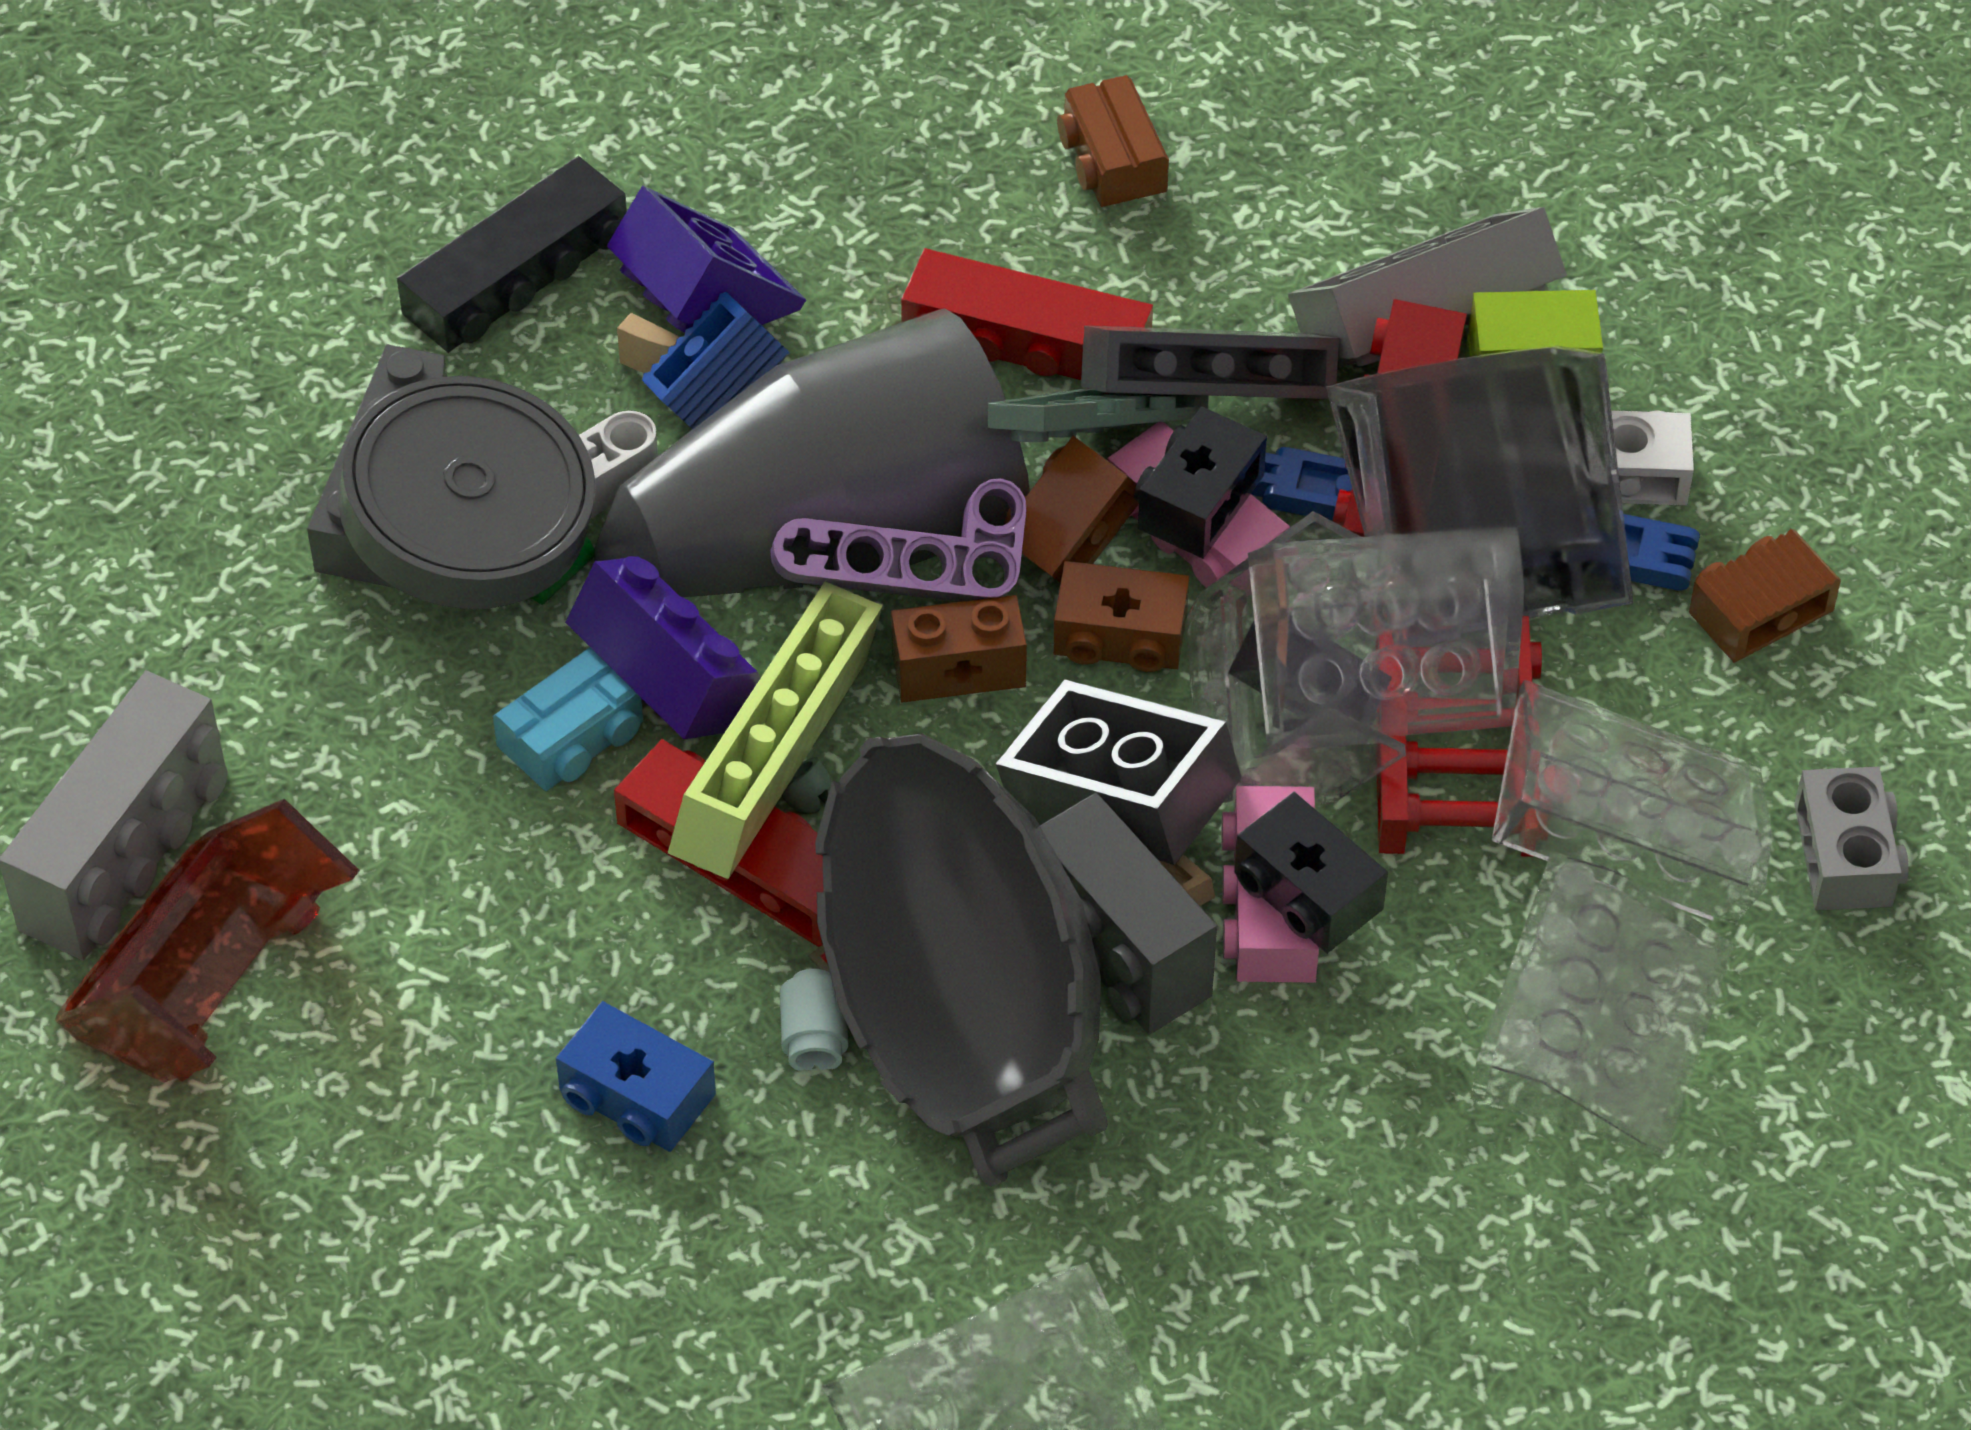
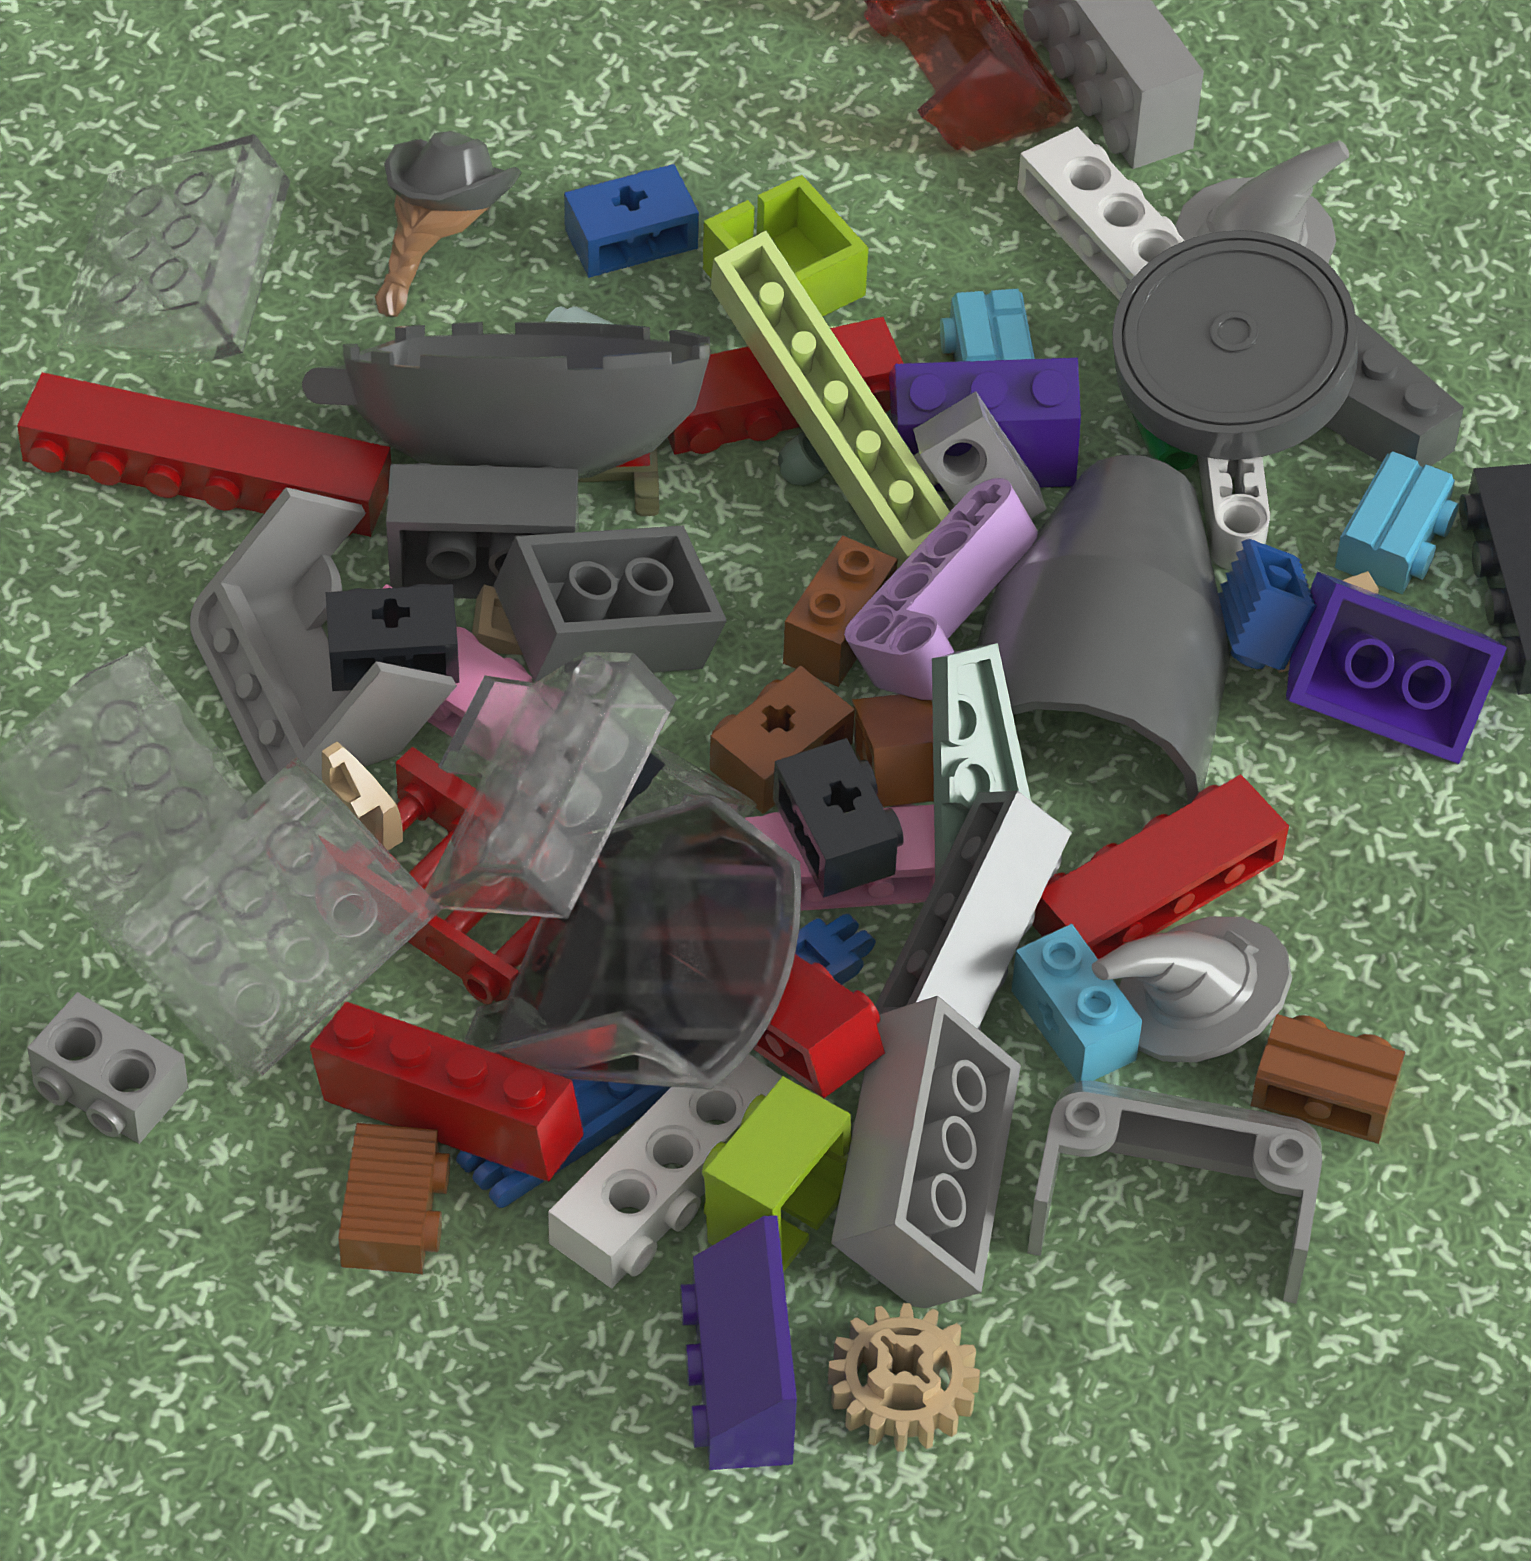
camera: 125 degrees right, 0 degrees up
(234, 632) = (1270, 202): none -> light grey piece
(340, 710) = (1094, 207): none -> white brick
(534, 354) = (1397, 523): none -> medium azure brick
(596, 912) = (809, 235): none -> lime piece
(739, 1222) = (438, 194): none -> dark grey hat
(747, 610) = (987, 459): none -> light grey brick
(1112, 234) = (1201, 986): none -> light grey piece
(1202, 284) = (1076, 1012): none -> medium azure brick
(1212, 1217) = (195, 450): none -> red brick
(1264, 216) = (1185, 1132): none -> light grey windscreen
(1382, 983) = (271, 656): none -> light grey windscreen
(1486, 779) = (362, 794): none -> tan slope
(1622, 238) = (912, 1398): none -> tan gear
(1667, 594) = (440, 1083): none -> red brick
(1679, 302) = (741, 1350): none -> dark purple slope

